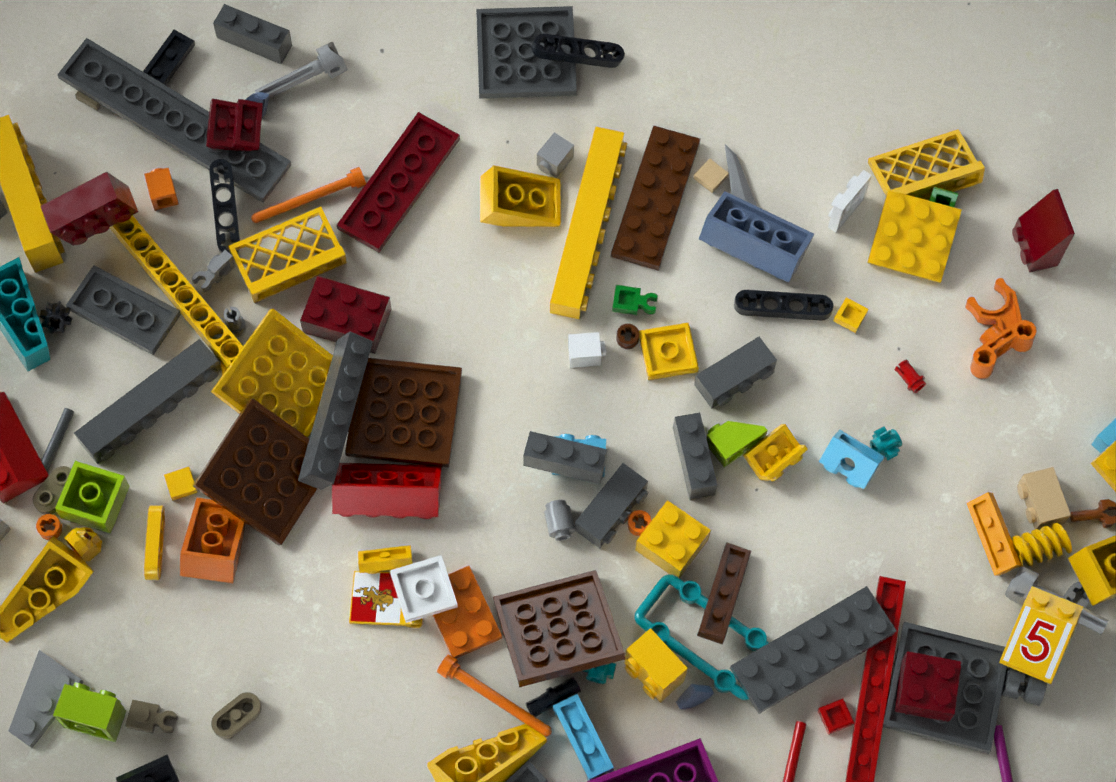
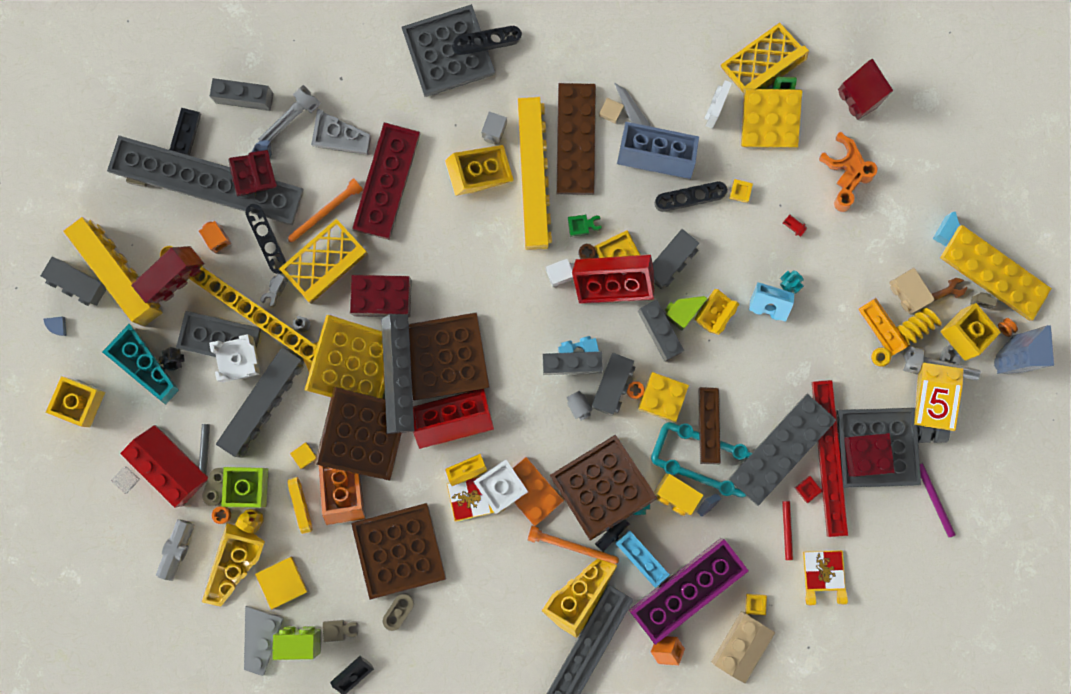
camera: 15 degrees left, 15 degrees up
(96, 635) = (281, 582): none -> yellow tile
(136, 337) = (236, 358): none -> white panel
(262, 637) = (398, 551): none -> reddish brown plate
(355, 113) = (337, 135): none -> light grey wing
(652, 373) = (614, 279): none -> red slope
(981, 563) = (885, 361): none -> yellow plate

